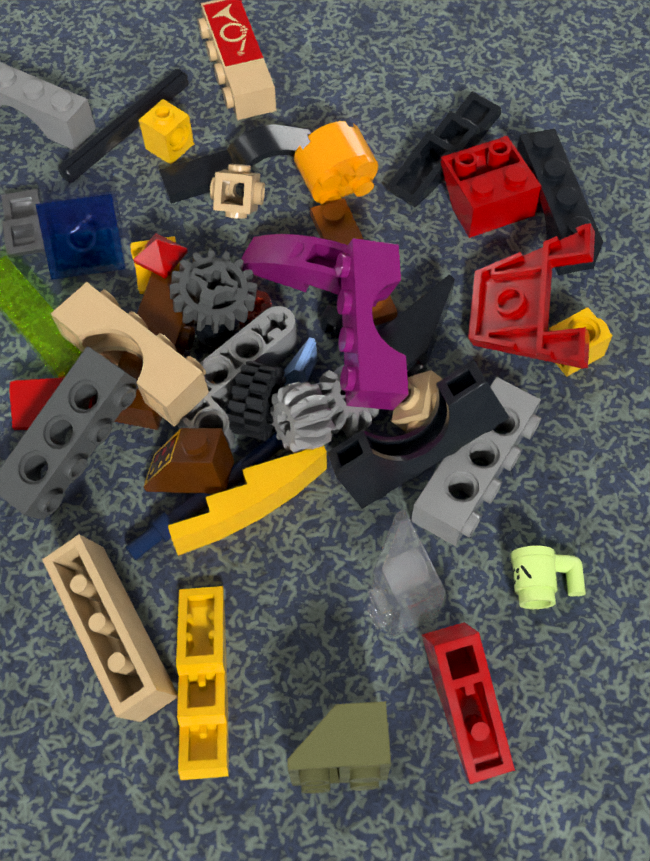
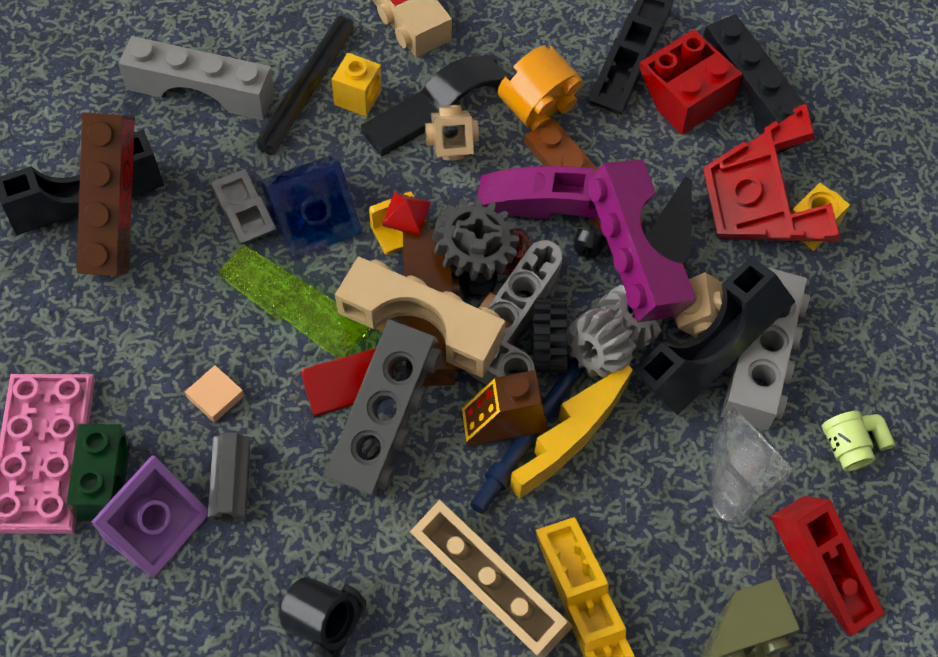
camera: 20 degrees left, 0 degrees up
(302, 364) = (574, 291): light blue slope -> none

